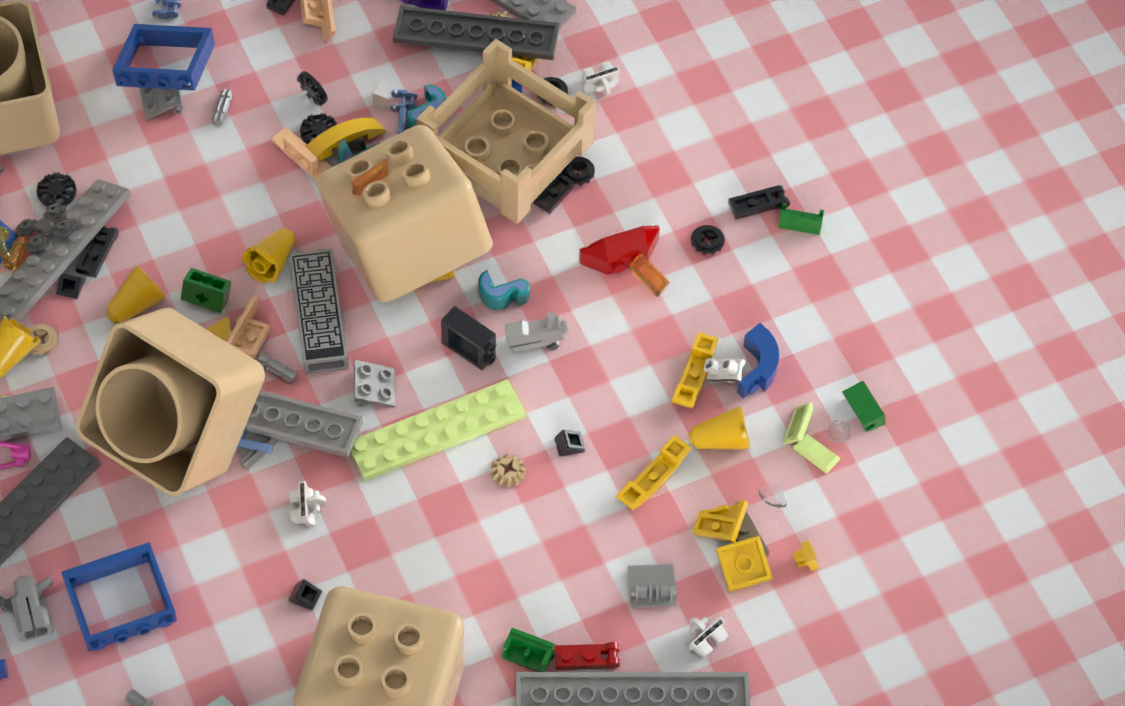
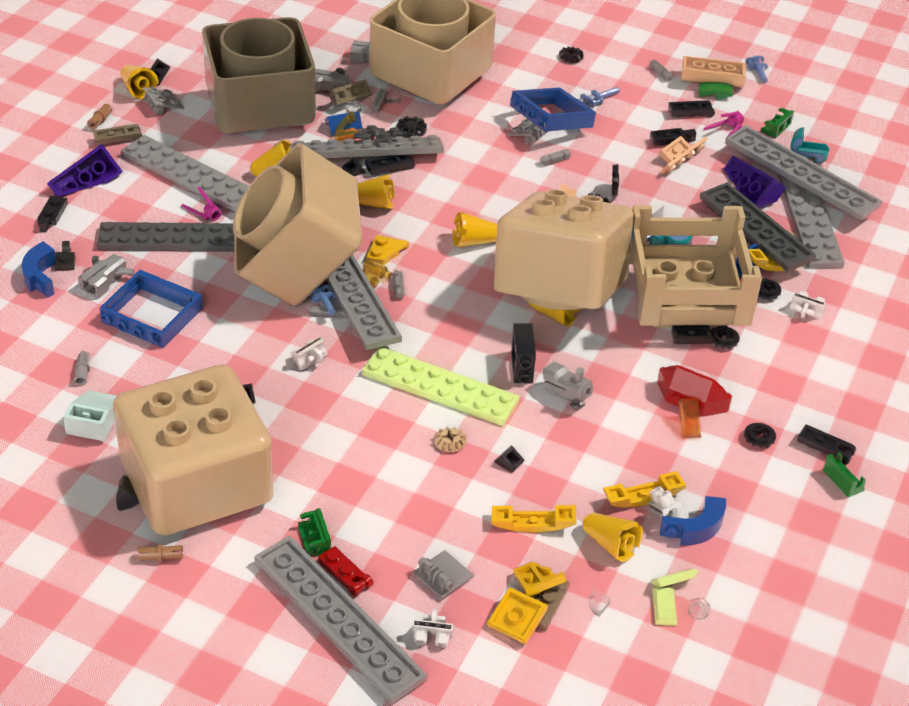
camera: 50 degrees right, 15 degrees down
(205, 290) = (413, 218): green brick -> none
(249, 333) = (402, 253): light nougat bracket -> none
(318, 311) = (456, 279): light grey brick -> none
(373, 384) = (438, 333): light grey hinge -> none
(376, 173) = (561, 199): clear orange tile -> none
(502, 295) = (581, 355): teal animal -> none
(806, 556) = (568, 652): yellow tile -> none
(864, 406) = (736, 609): green hinge -> none

